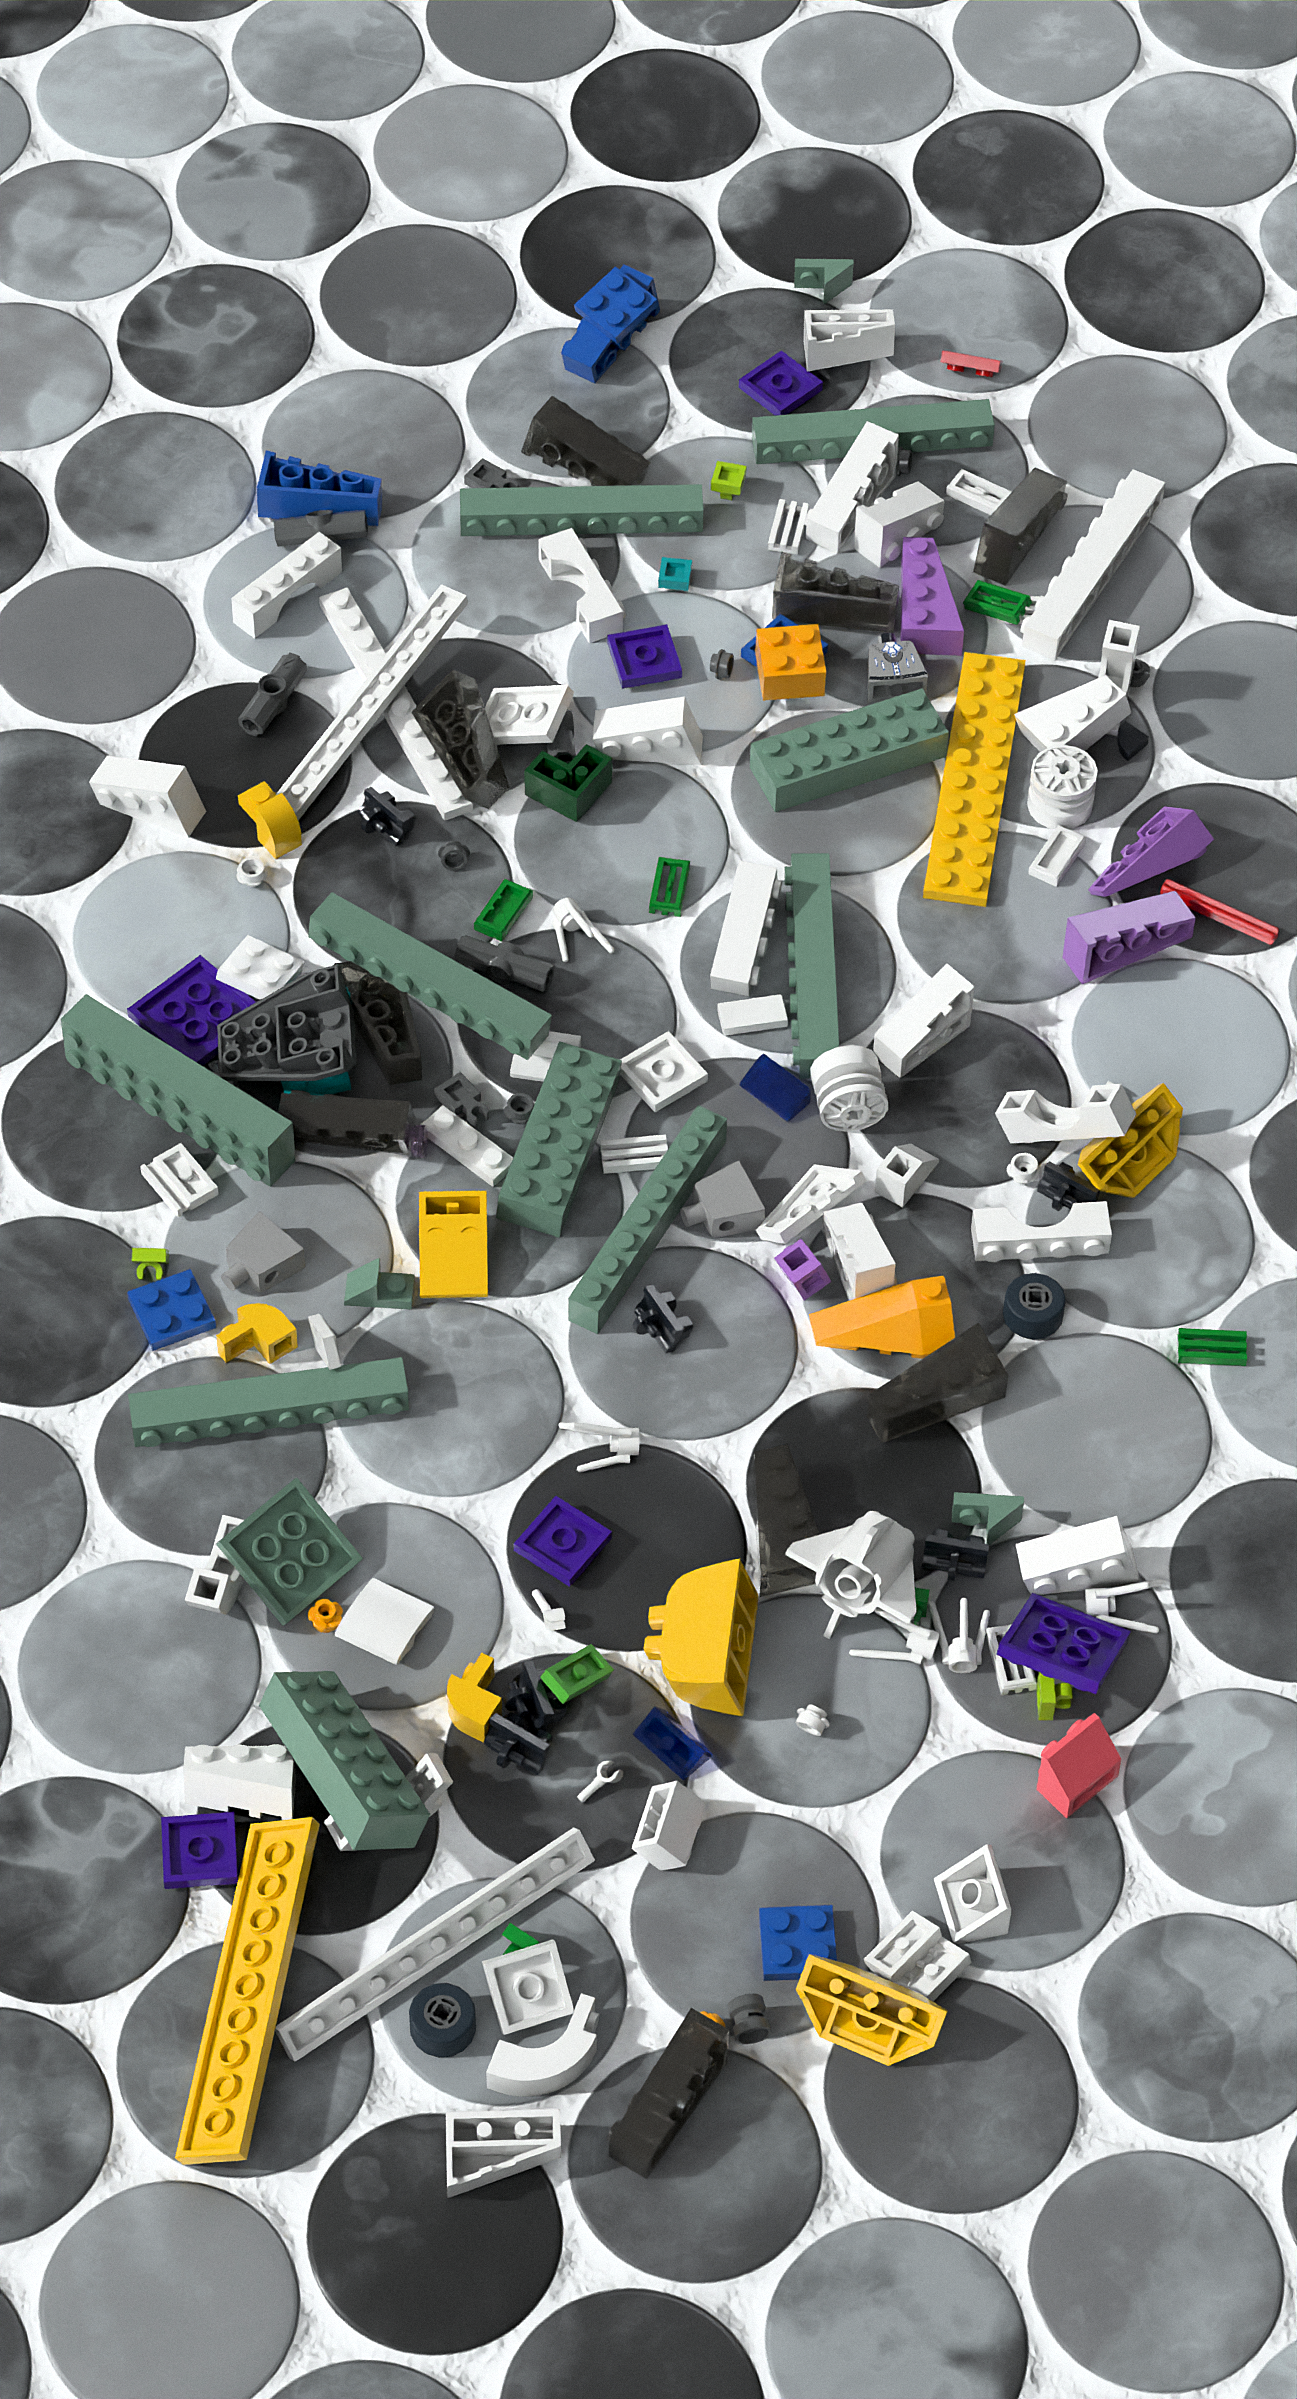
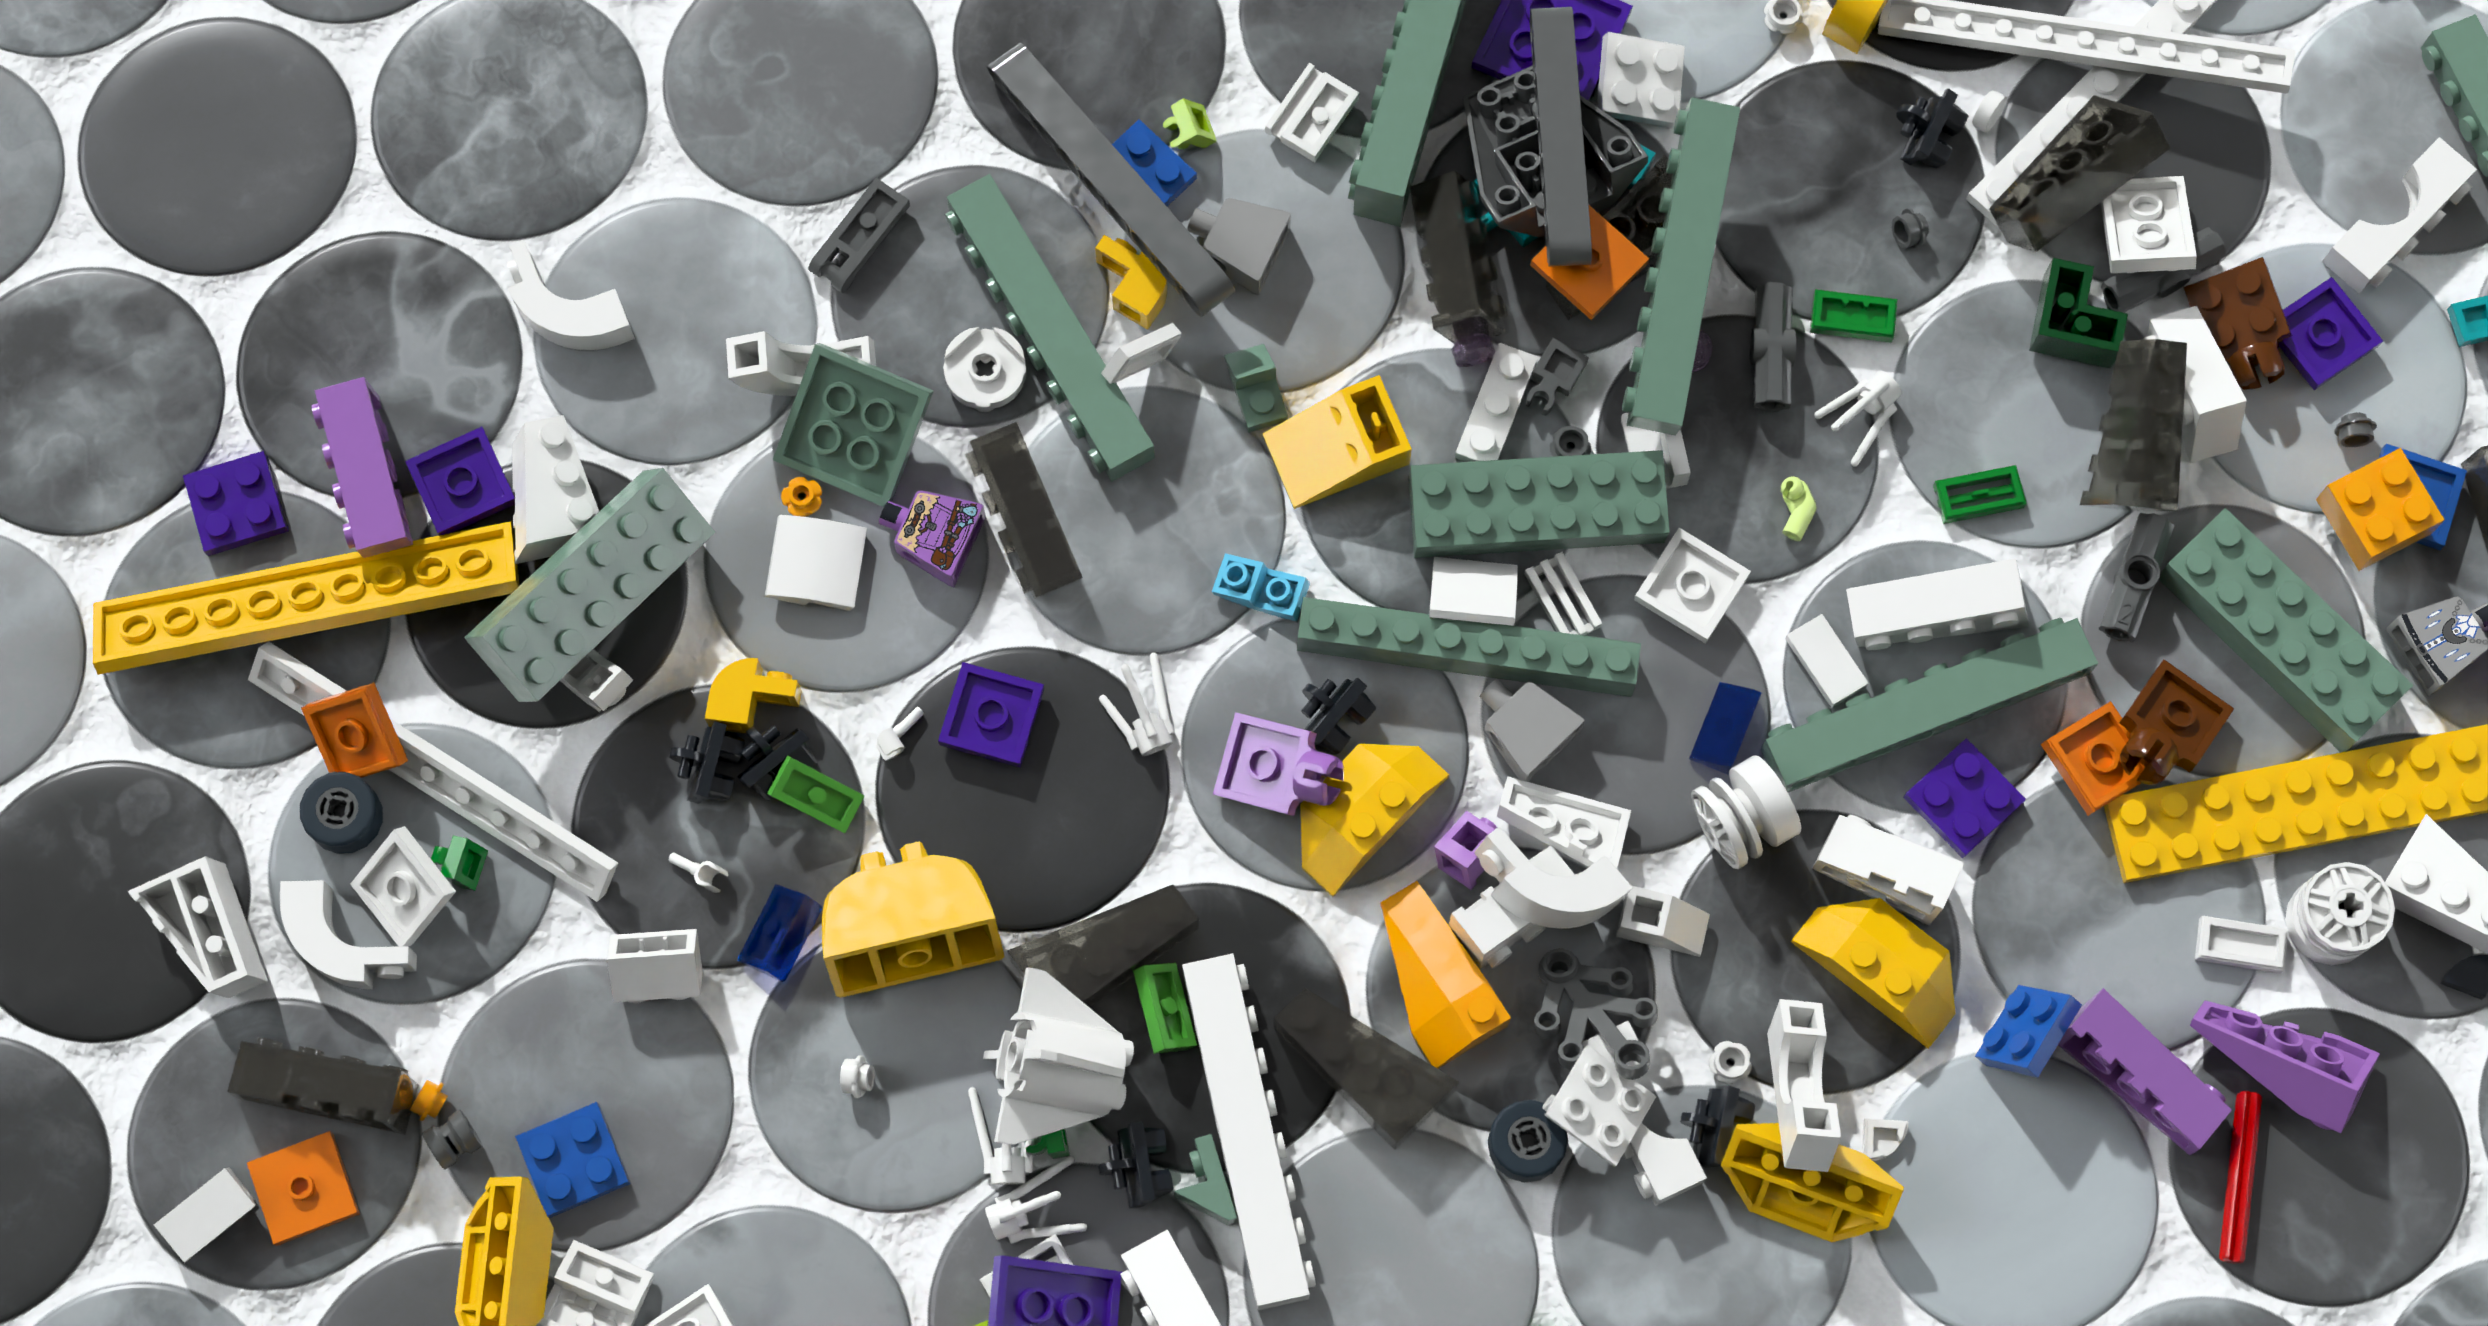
camera: 70 degrees right, 20 degrees up
(91, 1738) = (573, 324): none -> white arch
(127, 1506) = (859, 234): none -> dark grey plate
(135, 2028) = (235, 503): none -> dark purple plate
(159, 1904) = (362, 467): none -> medium lavender wedge
(173, 1314) = (1111, 180): none -> dark grey beam
(276, 1439) = (984, 391): none -> white plate
(294, 1010) = (1560, 137): none -> dark grey beam
(384, 1978) = (355, 732): none -> orange plate
(388, 779) = (1989, 111): none -> white tile
(396, 1032) = (1612, 268): none -> orange plate
(401, 1530) = (935, 532): none -> torso
(408, 1462) = (1023, 510): none -> clear smoke wedge
(541, 1337) = (1260, 588): none -> medium azure slope
(608, 1197) = (1473, 591): none -> white slope
(610, 686) = (2244, 320): none -> reddish brown plate
(631, 990) = (1801, 506): none -> yellowish green arm
(673, 765) = (2141, 430): none -> clear smoke wedge
(689, 1363) = (1275, 766): none -> plate
(738, 2220) = (205, 1214): none -> white hinge
(743, 2146) = (303, 1188): none -> orange plate
(744, 1327) = (1376, 798): none -> yellow wedge
(773, 816) = (2130, 599): none -> dark grey piece
(830, 1499) = (1165, 1008): none -> bright green plate
(860, 1220) = (1545, 897): none -> white arch
(887, 971) = (1964, 798): none -> dark purple plate
(890, 832) = (2170, 724): none -> reddish brown plate
(893, 883) = (2090, 758): none -> orange plate
(921, 1243) = (1592, 1009): none -> dark grey plant
(938, 1472) = (1246, 1132): none -> white brick
(987, 1056) = (1884, 963): none -> yellow wedge
(1032, 1244) = (1599, 1106): none -> white hinge
(1074, 983) = (2028, 1030): none -> blue plate

